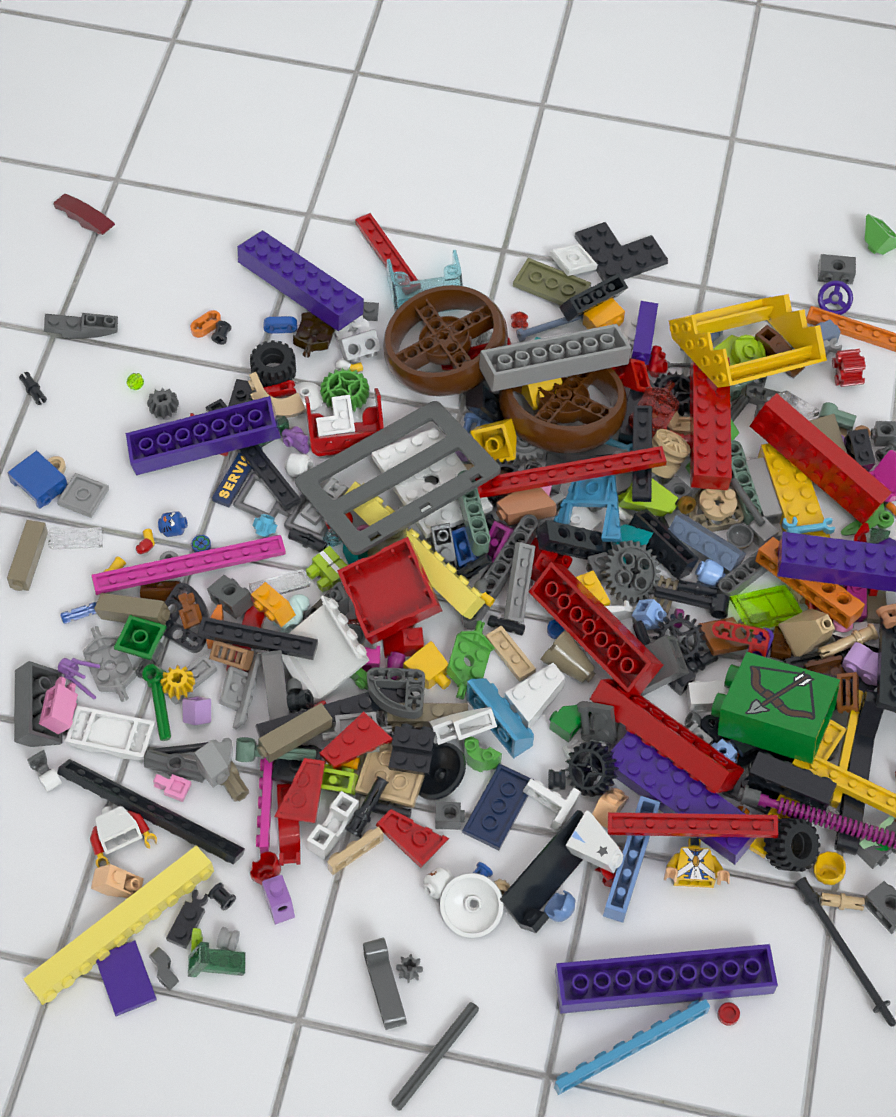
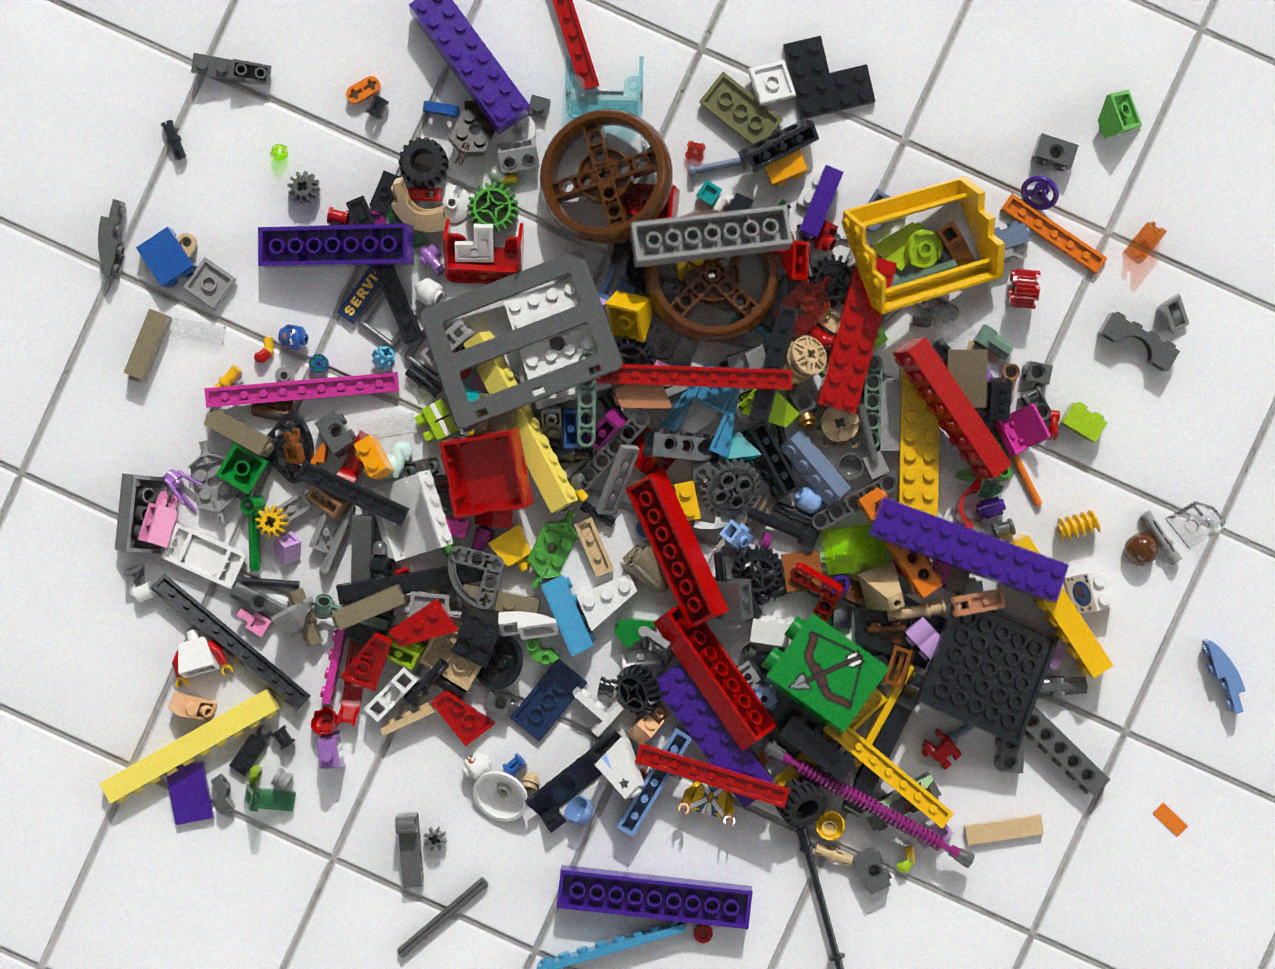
camera: 15 degrees right, 30 degrees up
(78, 613) = (190, 417): axle -> none
(793, 528) = (902, 480): medium azure bar -> none

